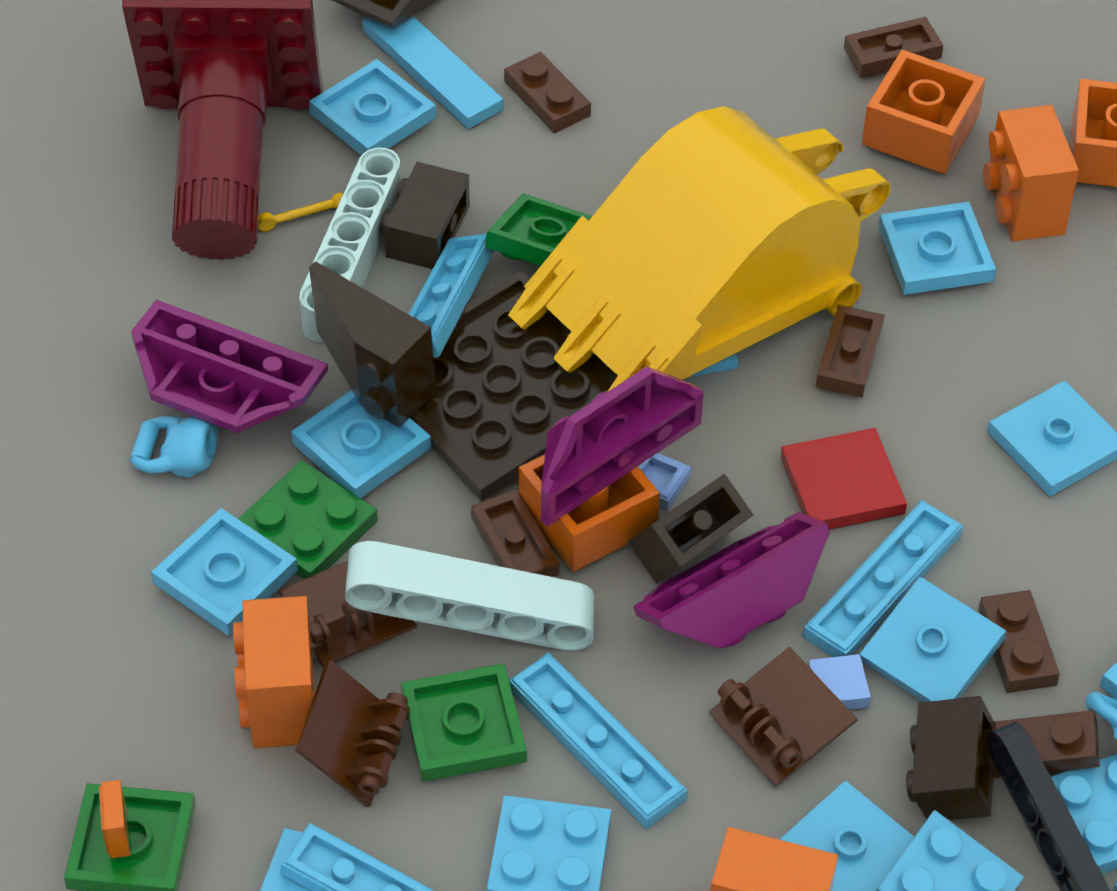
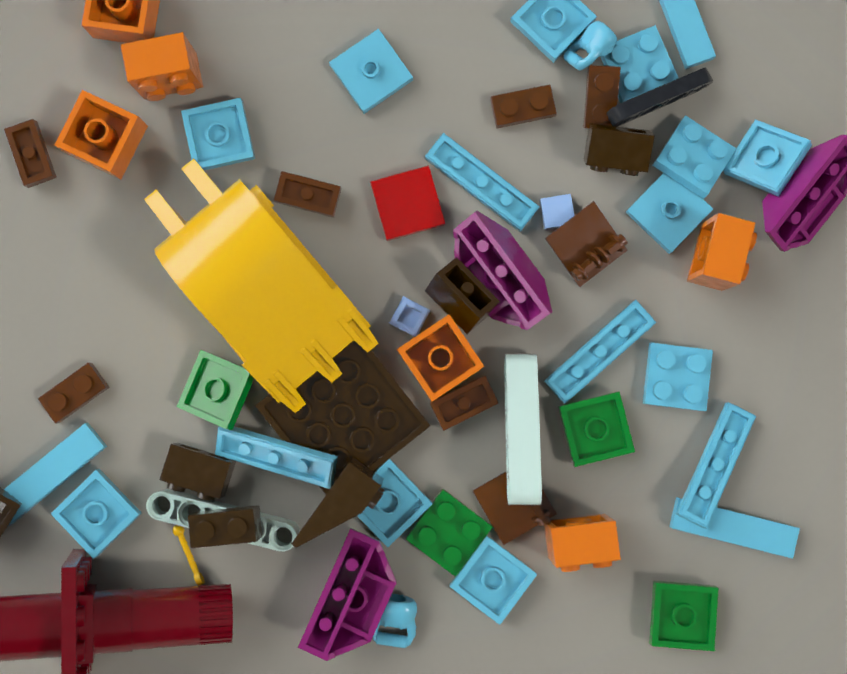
camera: 90 degrees left, 35 degrees up
(114, 819) = (689, 627): orange tile -> none
(344, 216) = (225, 526): none -> dark brown brick
(352, 733) = (618, 494): reddish brown hinge -> none
(614, 437) = (421, 346): magenta wedge -> none
(932, 644) = (534, 155): medium azure plate -> none

